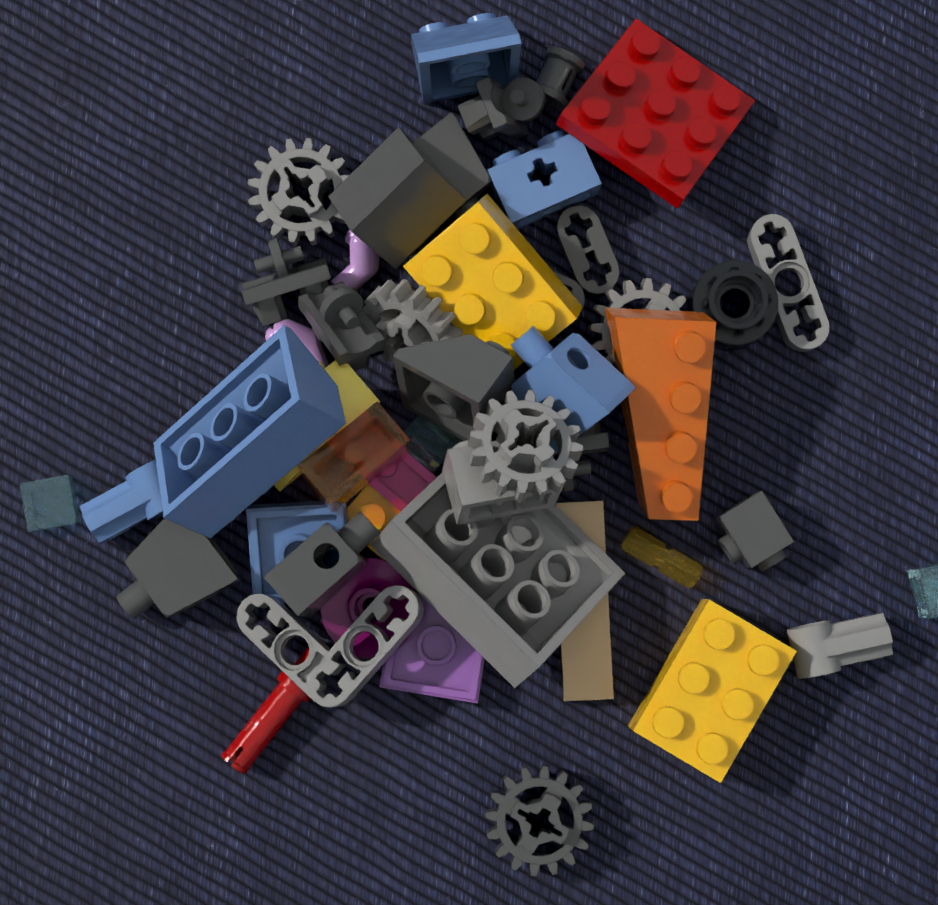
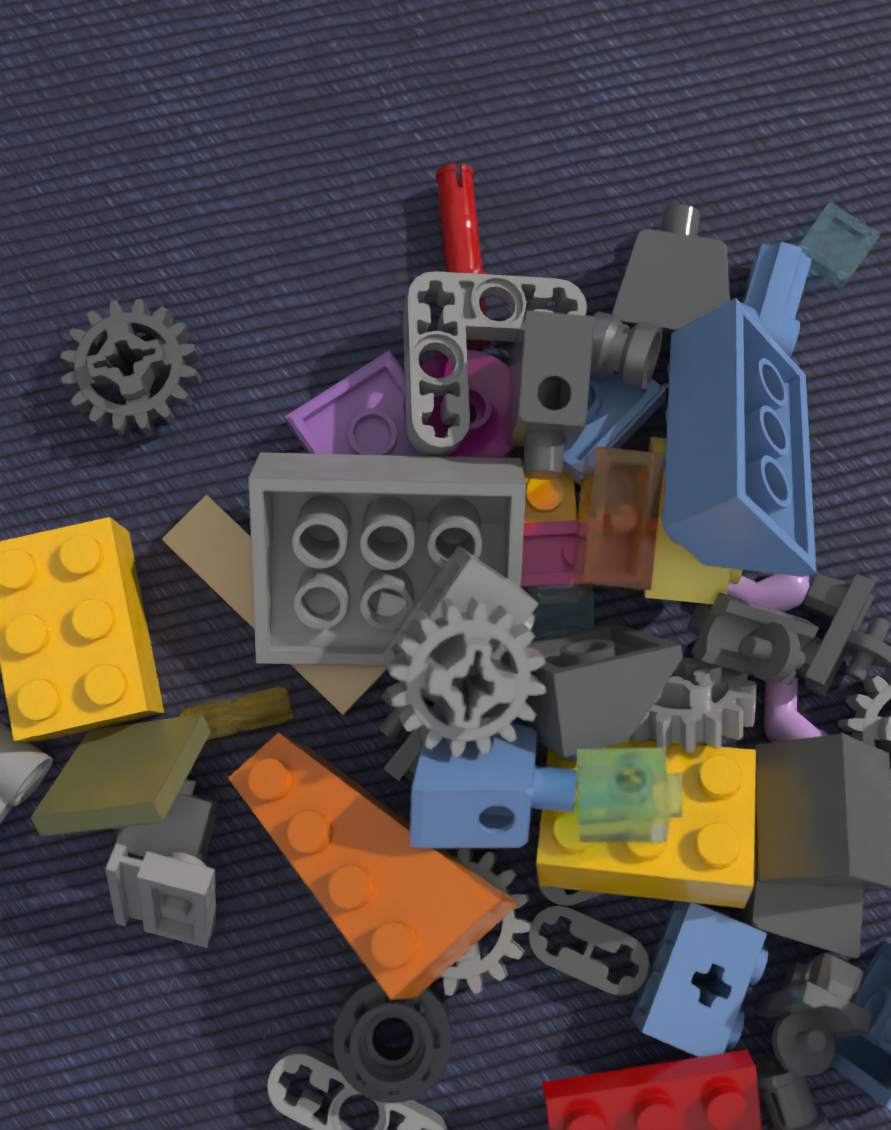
camera: 130 degrees right, 5 degrees down
(251, 552) = (624, 350): none -> flat silver wheel
(499, 308) = (626, 795): none -> clear light blue brick
(753, 575) = (122, 776): none -> olive tile
(788, 490) = (165, 892): none -> light grey plate

